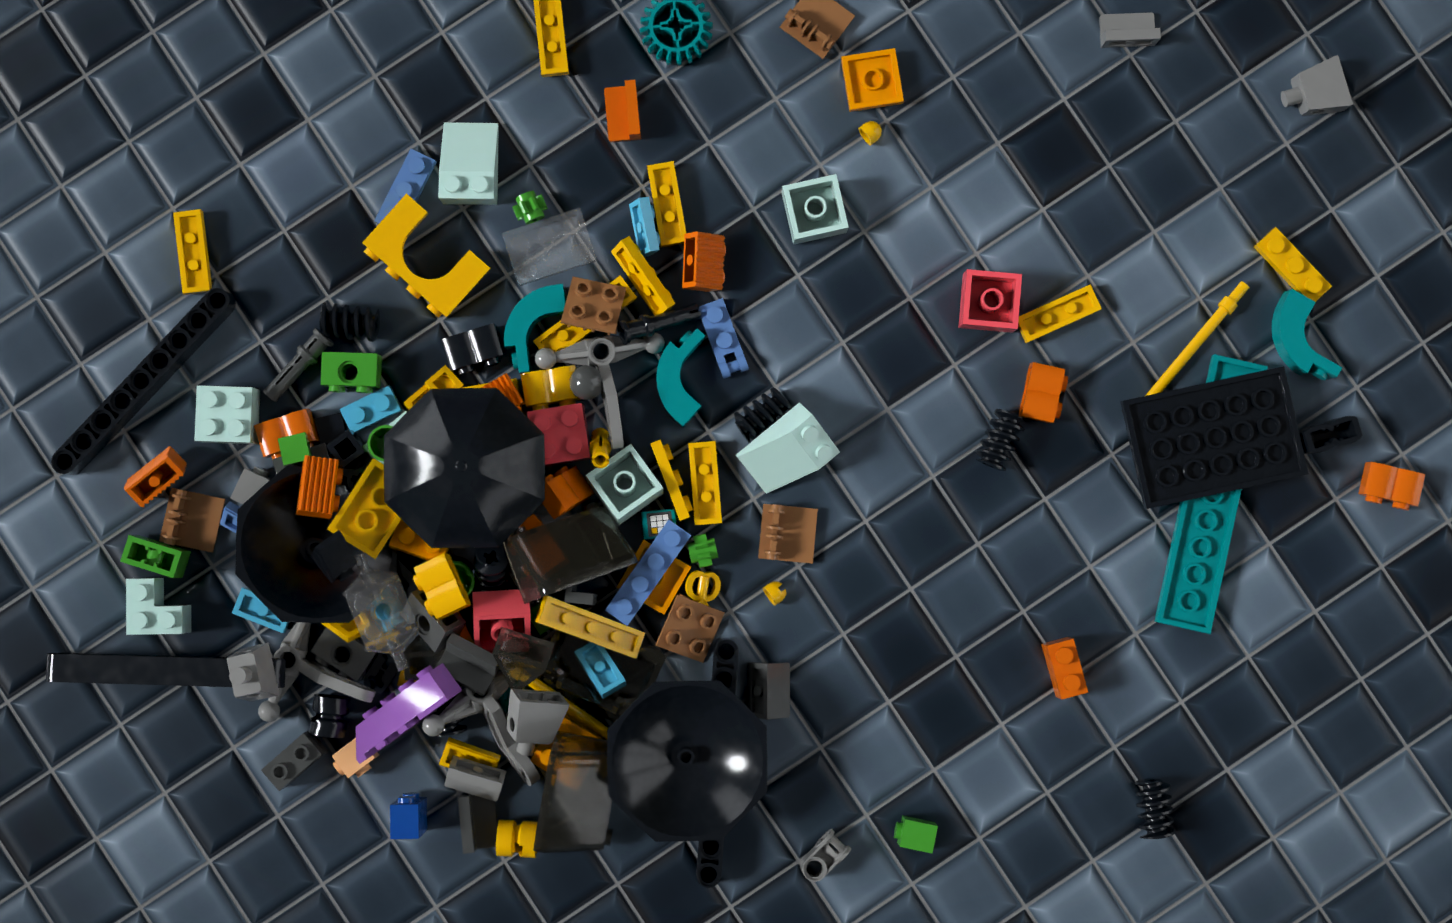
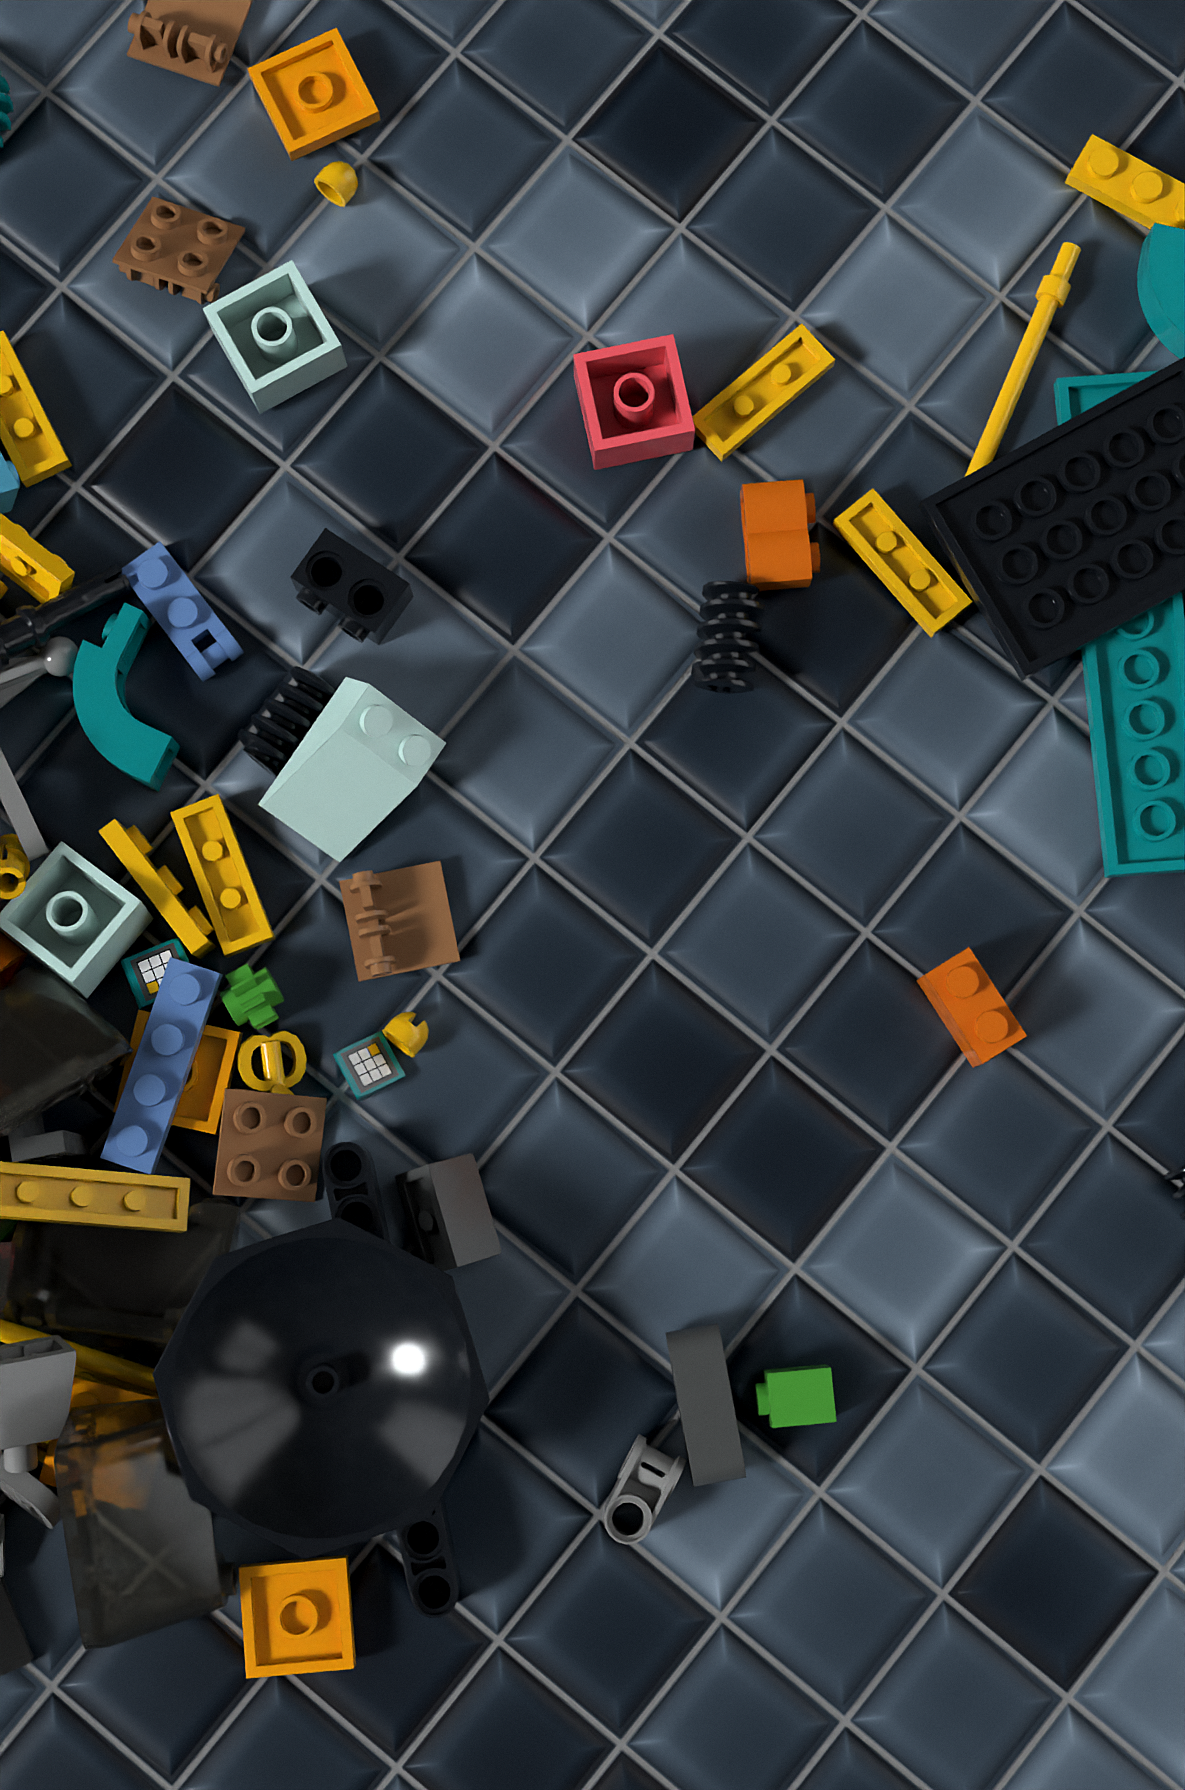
camera: 10 degrees left, 5 degrees down
(516, 838) = (48, 1638): yellow wheel -> none
(600, 669) = (123, 1269): medium azure plate -> none
(636, 865) = (297, 1616): none -> light orange plate
(703, 261) = (105, 486): orange brick -> none
(751, 603) = (369, 1065): none -> slope
(777, 143) = (178, 248): none -> medium nougat hinge
(820, 349) = (359, 579): none -> black brick
(869, 824) = (705, 1405): none -> dark grey beam
(1102, 426) = (902, 563): none -> yellow plate

